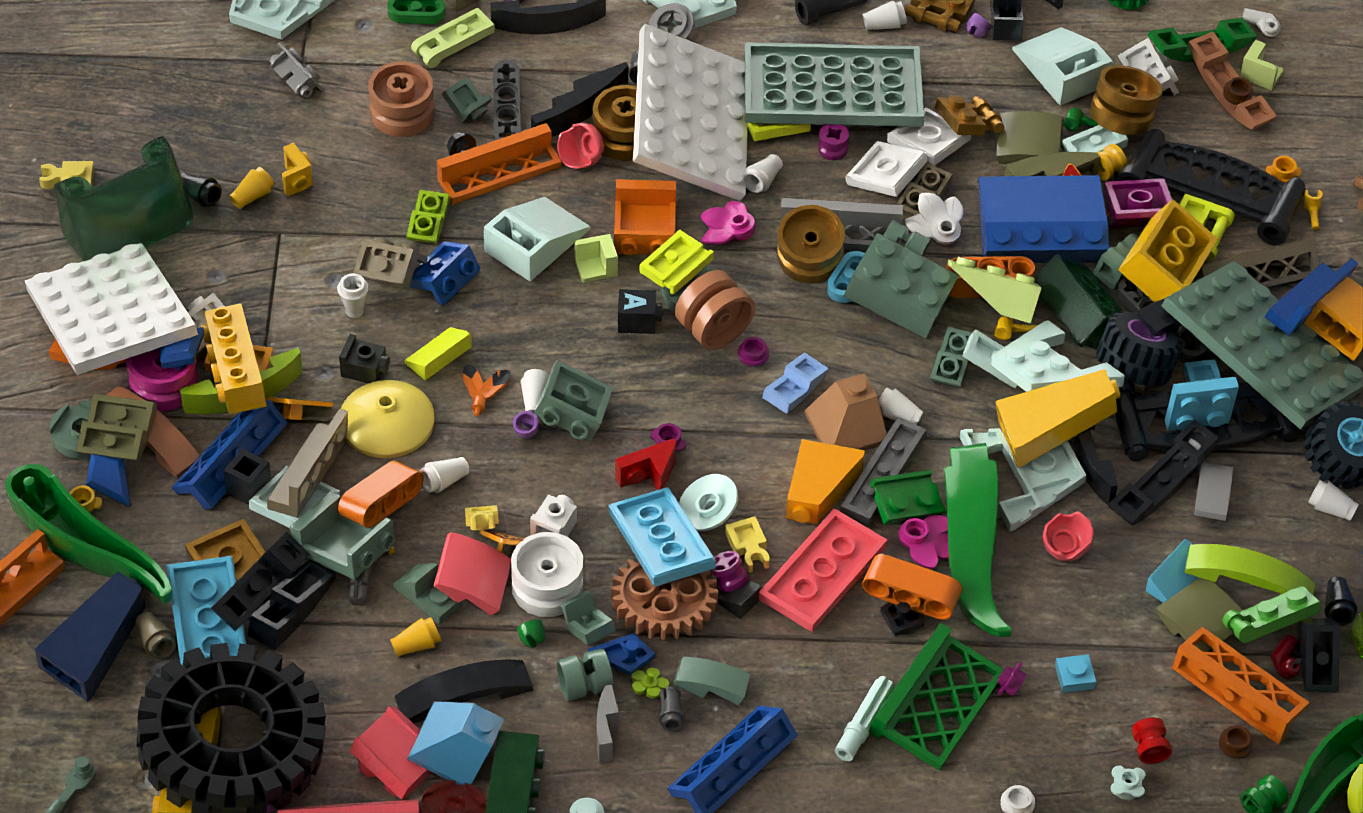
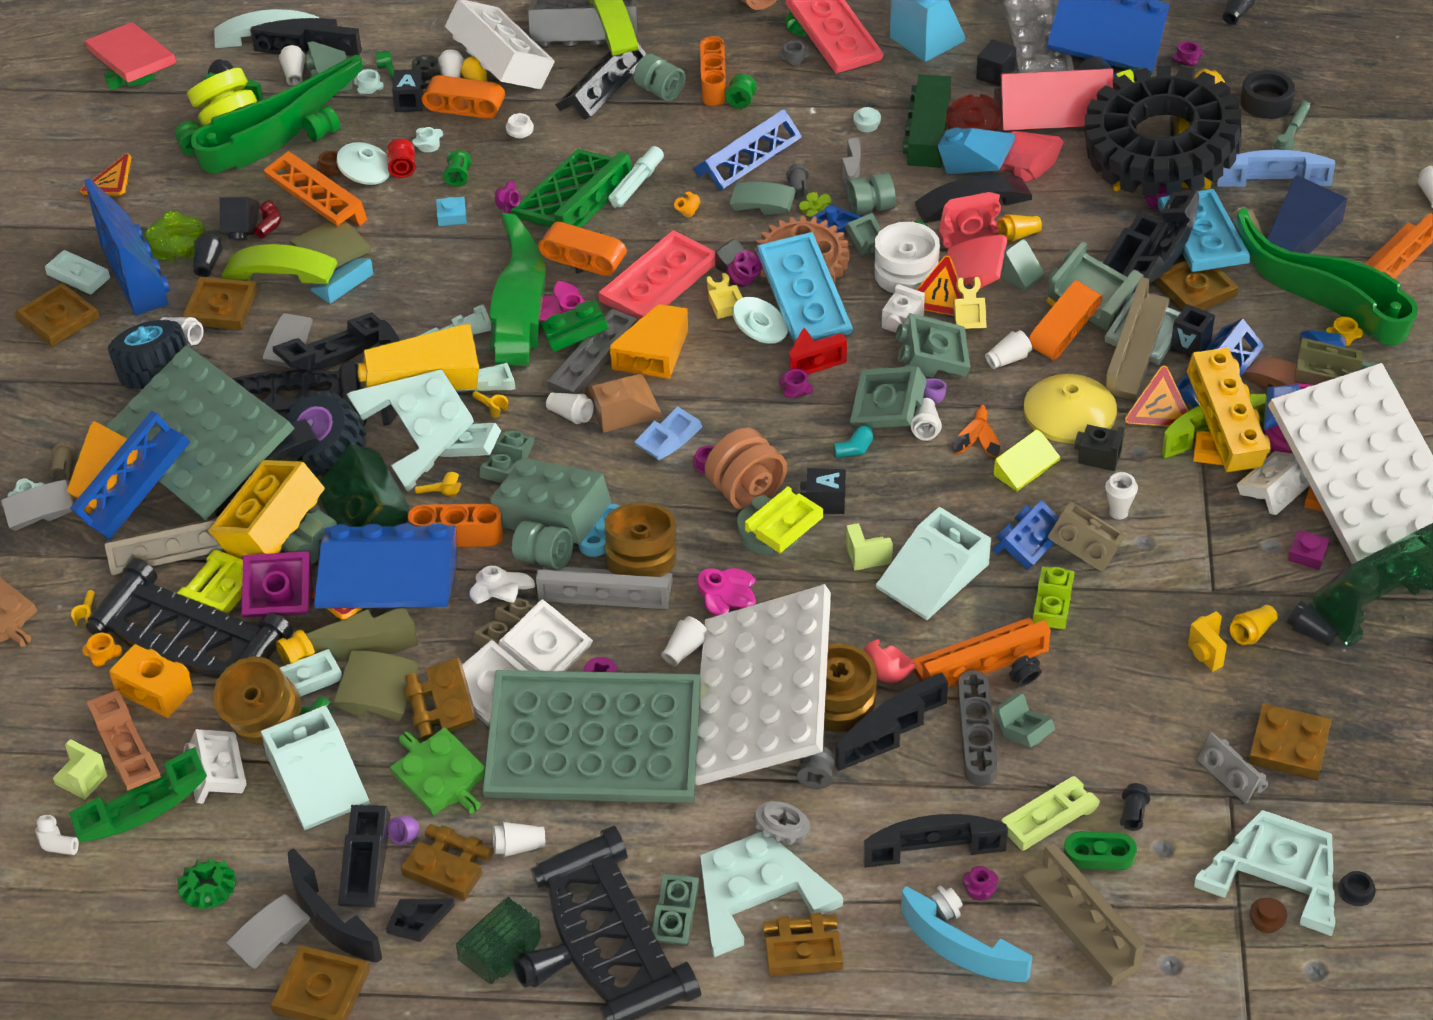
camera: 175 degrees left, 5 degrees down
(86, 726) = (1278, 165): none -> light blue slope
(182, 265) = (1309, 549): none -> magenta plate
(242, 98) = (1290, 741): none -> pearl gold plate
(381, 47) = (1135, 800): none -> black pin
(401, 99) = (1101, 716): nougat wheel -> none
(475, 623) = (969, 218): none -> coral slope
(523, 470) = (933, 346): none -> sand green plate
(610, 368) = (856, 445): none -> teal arm
(643, 215) = (820, 566): orange panel -> none
(795, 678) = (688, 205): none -> light orange arm
(960, 70) = (439, 772): none -> bright green plate
(975, 417) = (494, 403): none -> yellow hand
(1006, 294) = (454, 487): yellowish green slope -> none
(1068, 536) = (432, 296): coral hair -> none
(1080, 727) = (454, 166): none -> green bush
(1201, 747) = (363, 163): none -> light aqua dish
(1205, 401) = (280, 366): medium azure plate -> none
(1227, 133) = (151, 680): none -> light orange brick
(1237, 90) = (120, 726): reddish brown plate -> none
(1272, 614) = (272, 226): bright green plate -> none
(1301, 535) = (221, 302): none -> pearl gold plate

